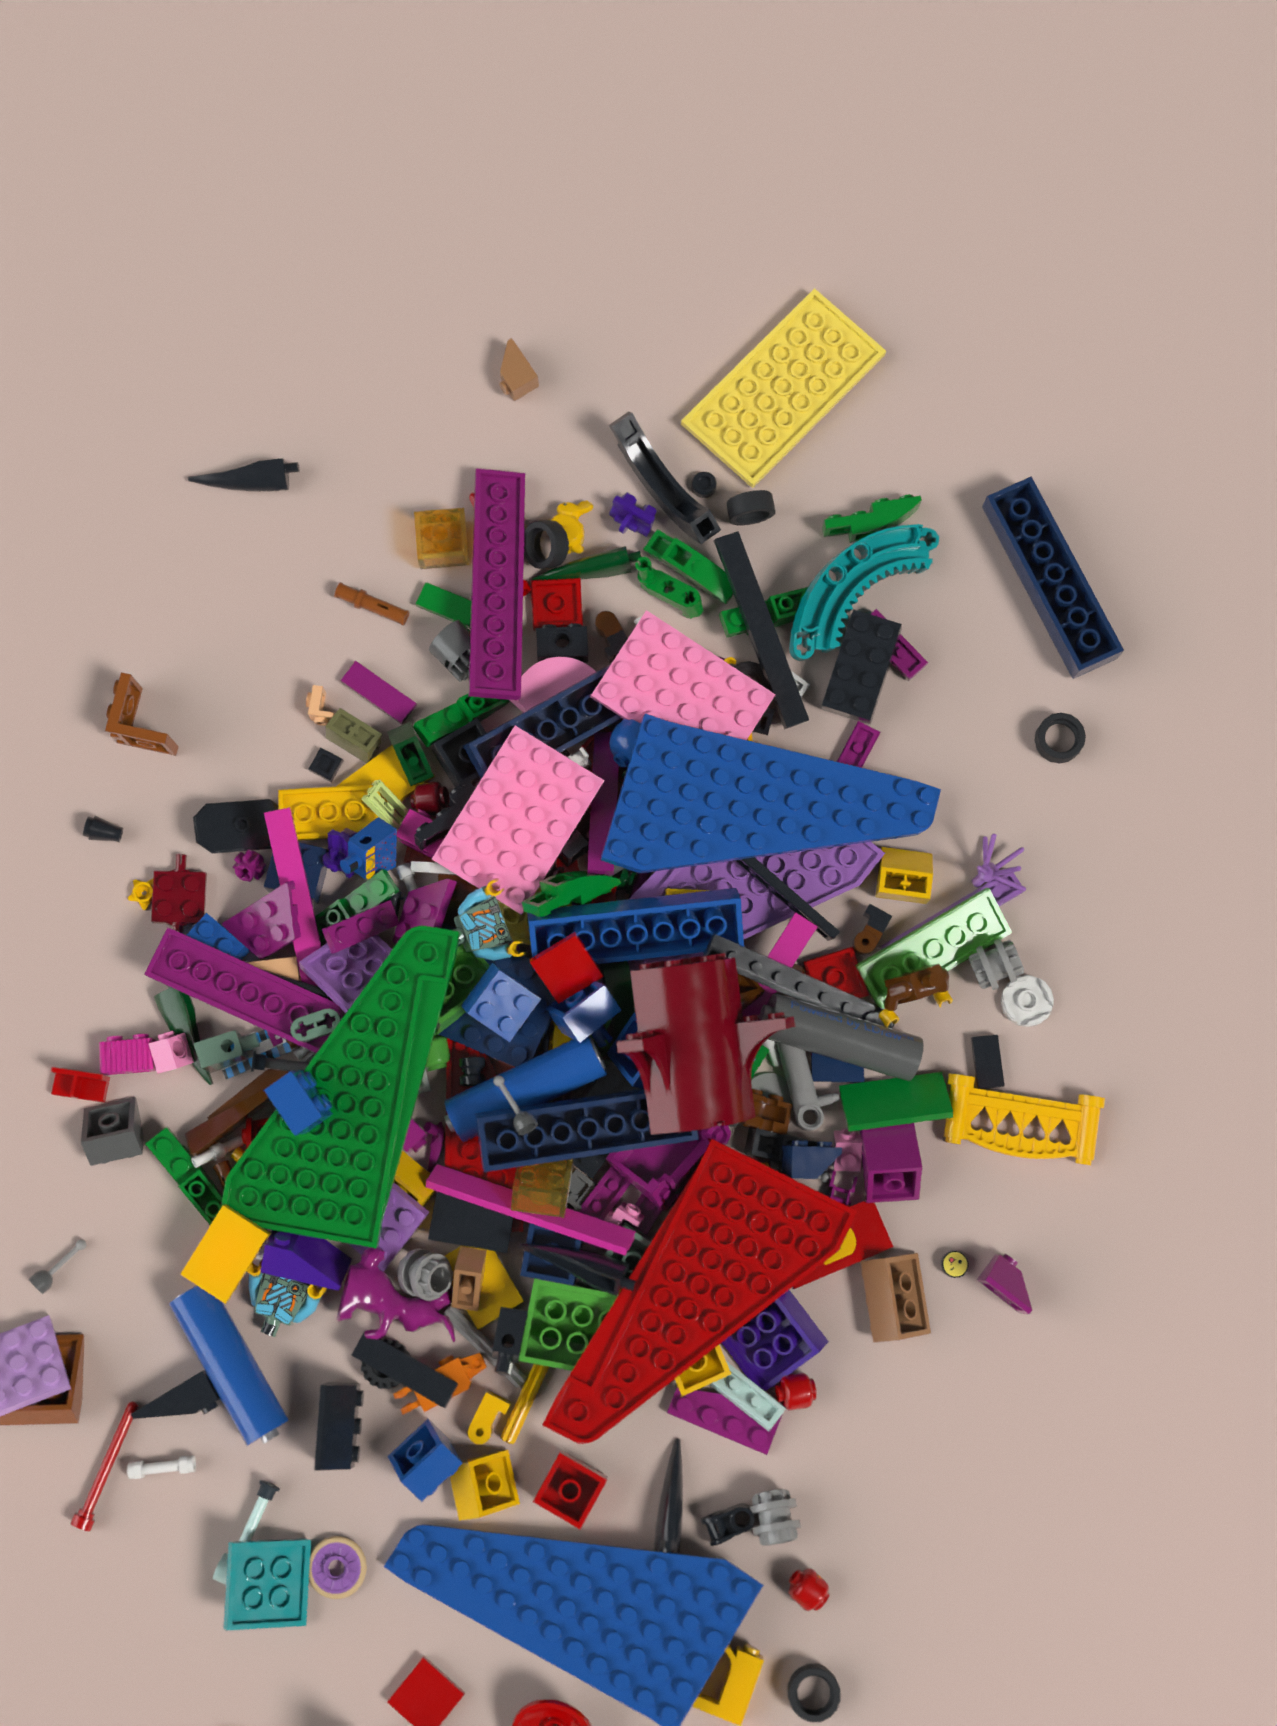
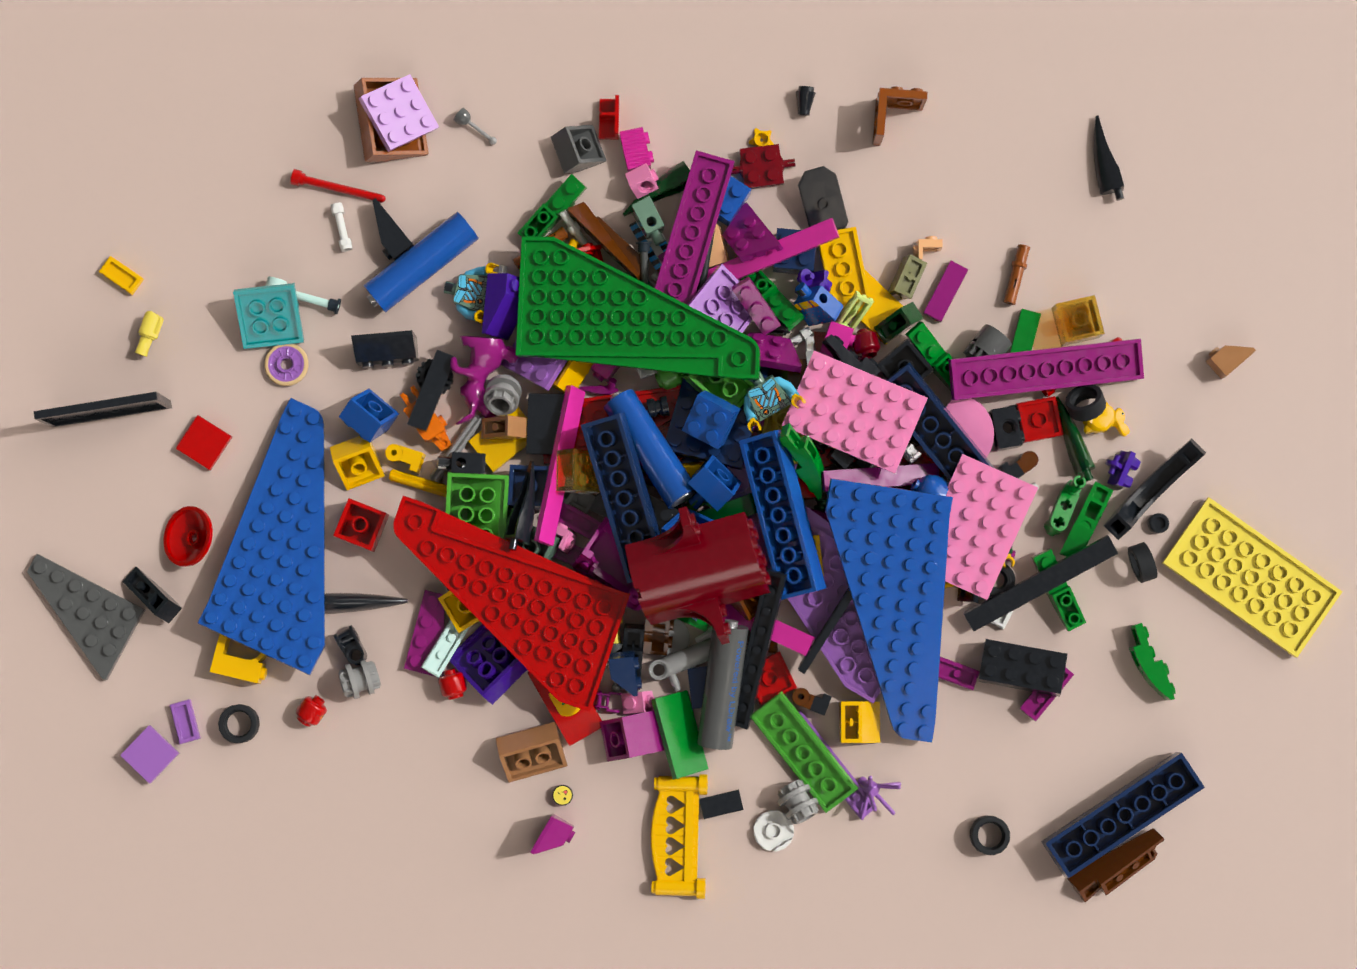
camera: 80 degrees right, 5 degrees up
(225, 1253) = (497, 245): yellow tile -> none
(249, 865) = (793, 215): magenta gear -> none
(299, 1101) = (614, 280): blue brick -> none
(314, 1019) = (678, 281): sand green beam -> none
(326, 764) = (882, 260): black tile -> none
(523, 1121) = (621, 447): hinge -> none
(566, 967) = (744, 465): red tile -> none
(828, 601) = (1072, 633): teal gear -> none
(915, 986) = (770, 739): reddish brown torso -> none
(1112, 592) = (1116, 866): none -> reddish brown wedge

